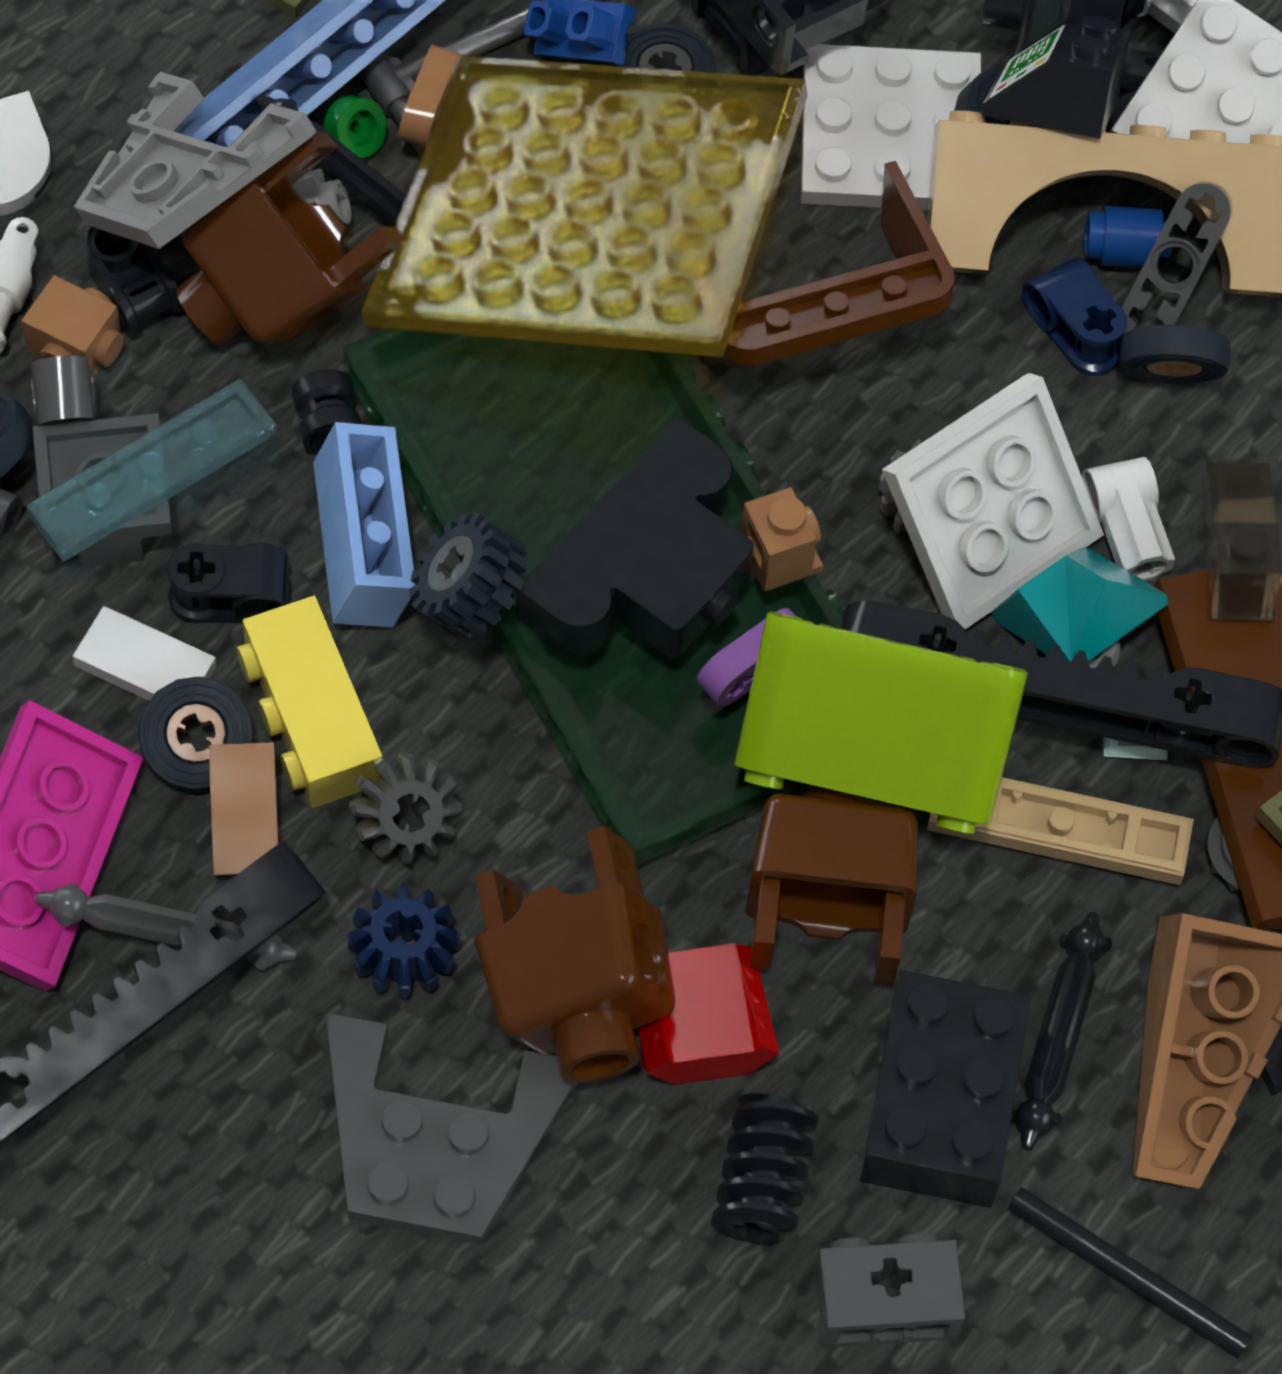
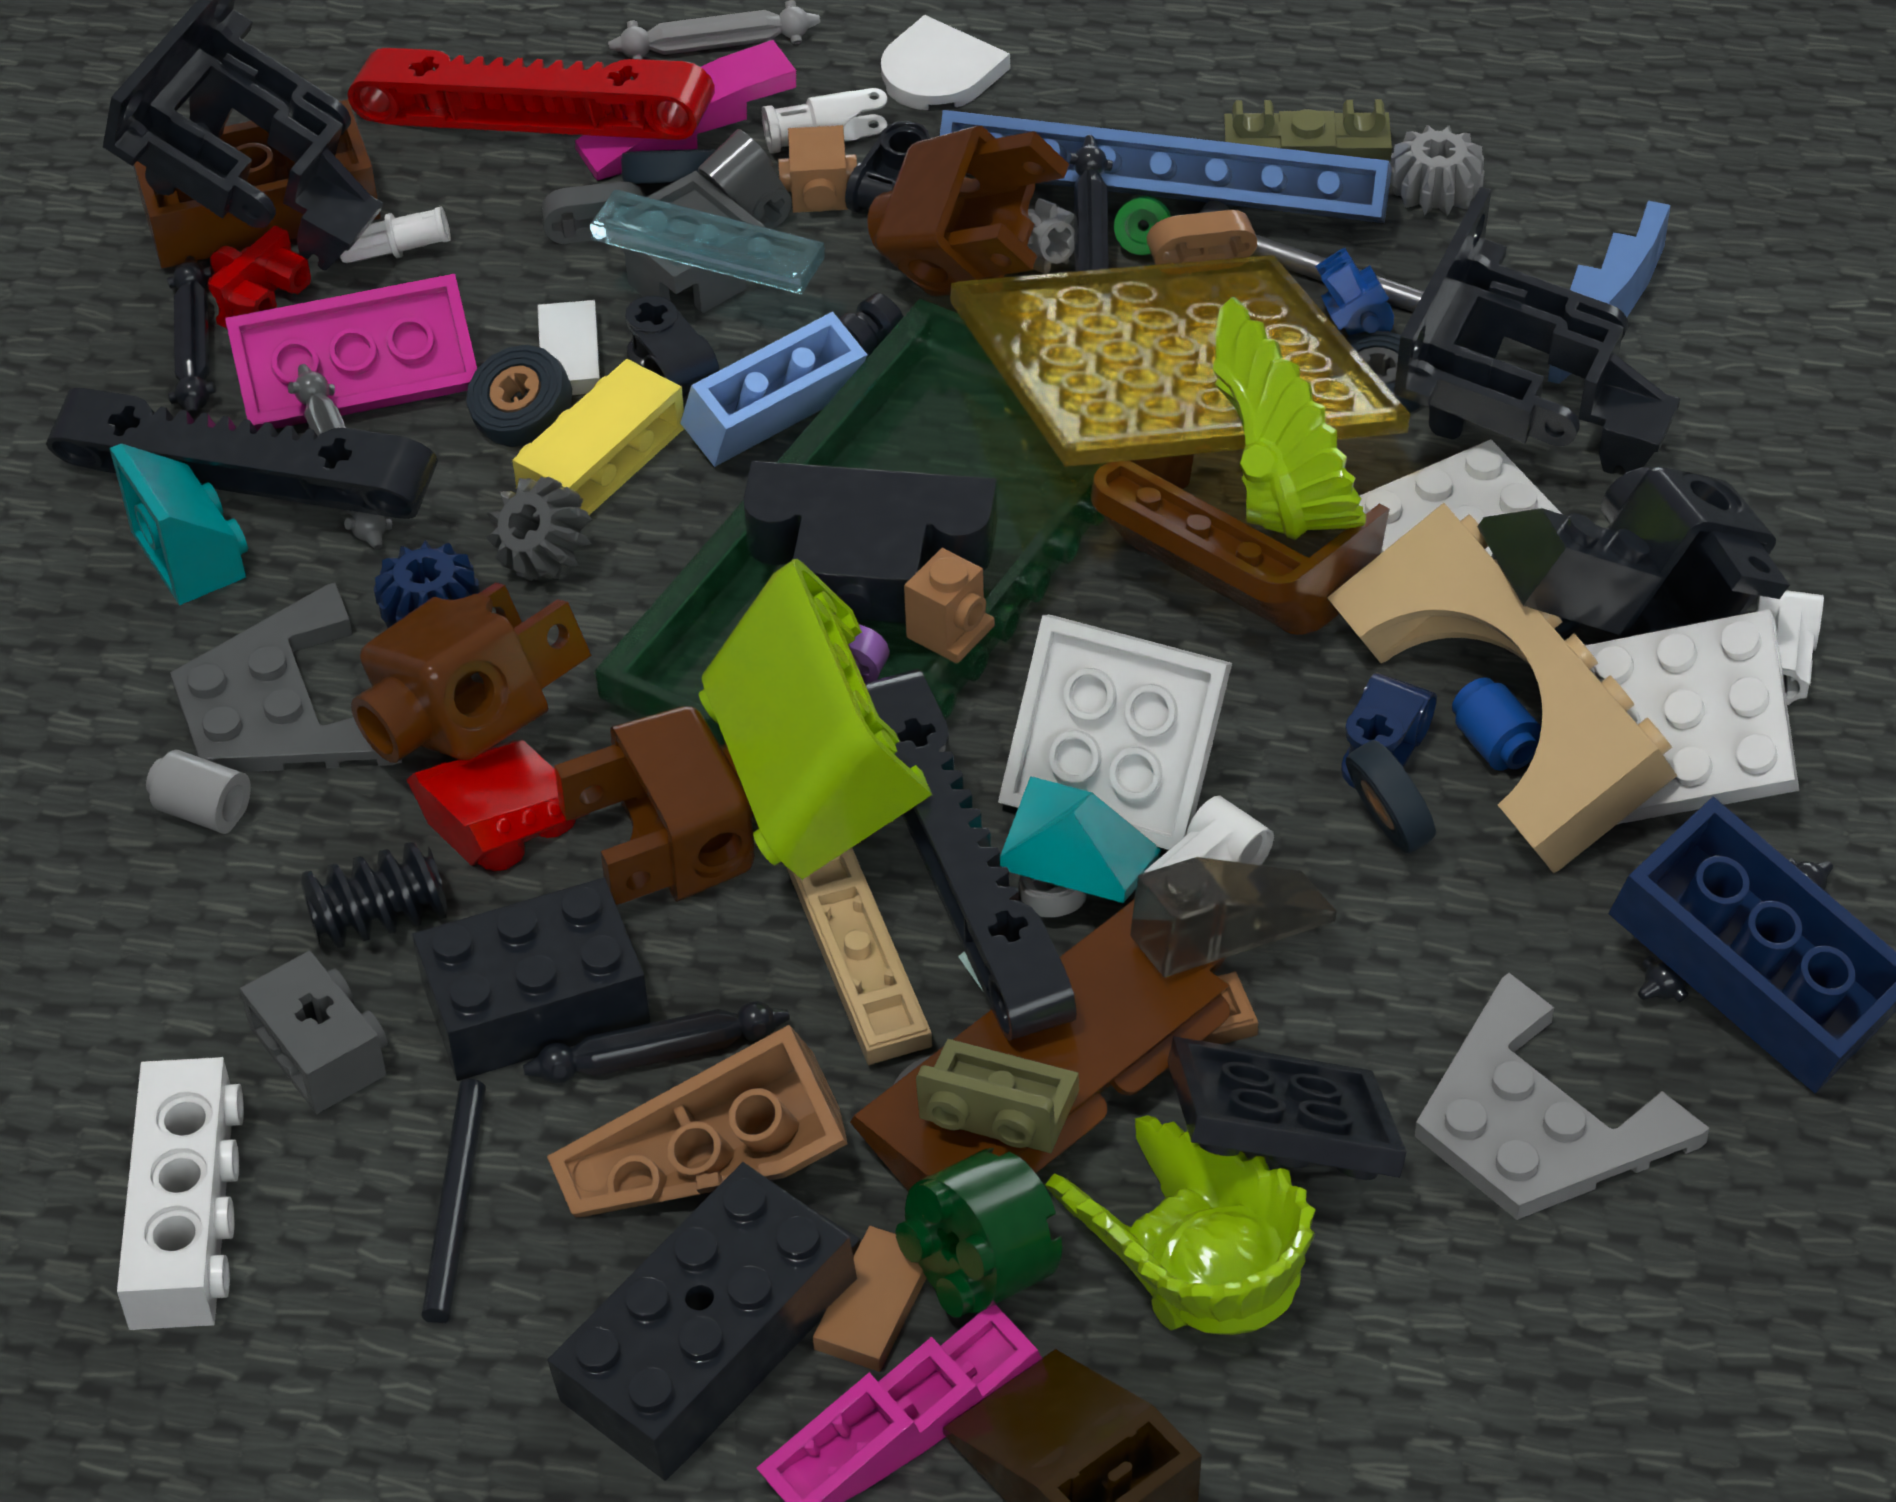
camera: 65 degrees right, 15 degrees down
(170, 1111) = (179, 523): none -> teal slope
(171, 179) = (973, 107): light grey wing -> none
(241, 805) = (478, 447): medium nougat tile -> none
(468, 575) = (748, 436): black wheel -> none
(526, 1256) = (198, 790): none -> light grey brick
(825, 182) = (1290, 453): none -> lime piece
(1183, 216) = (1518, 731): dark grey beam -> none

